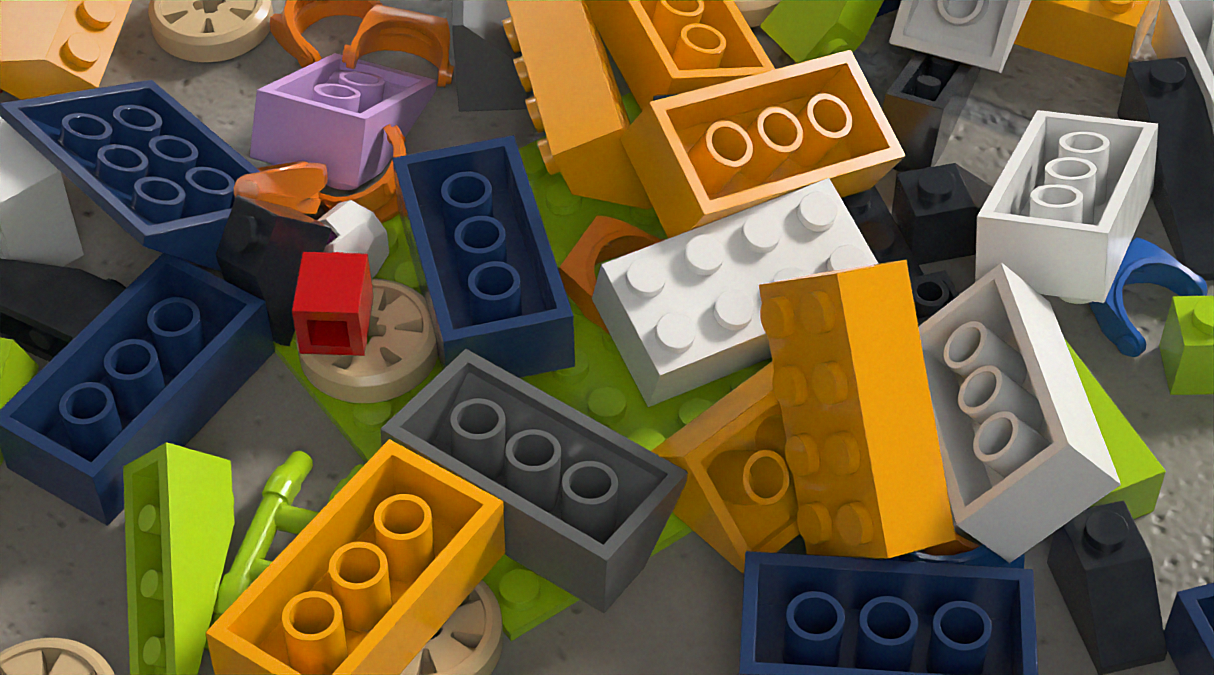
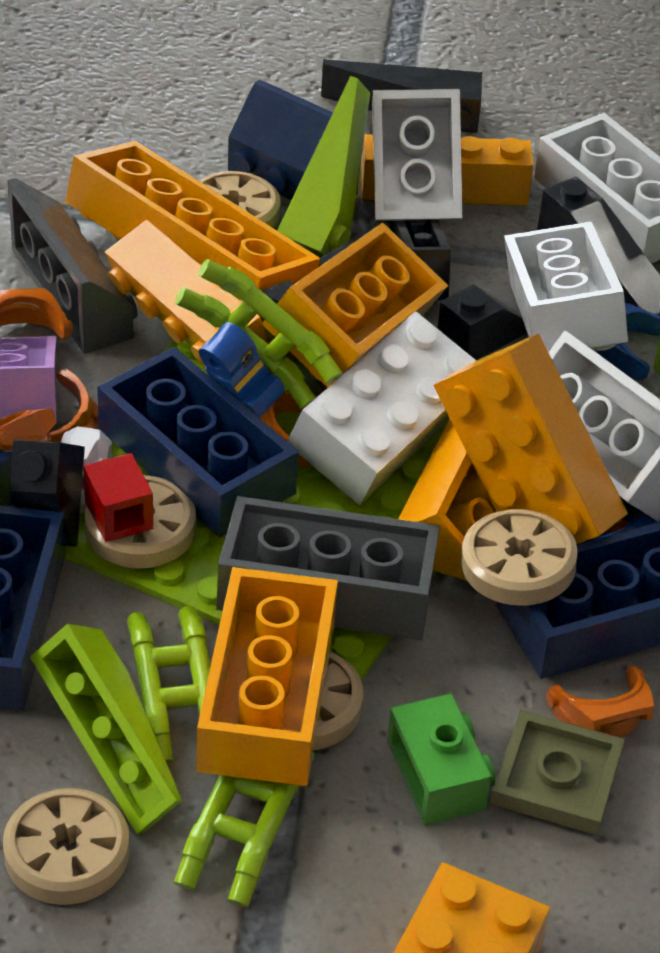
camera: 30 degrees left, 5 degrees down
(566, 191) = (236, 366): none -> blue leg
(580, 128) = (255, 302): none -> lime piece
(756, 588) = (497, 553): none -> tan wheel

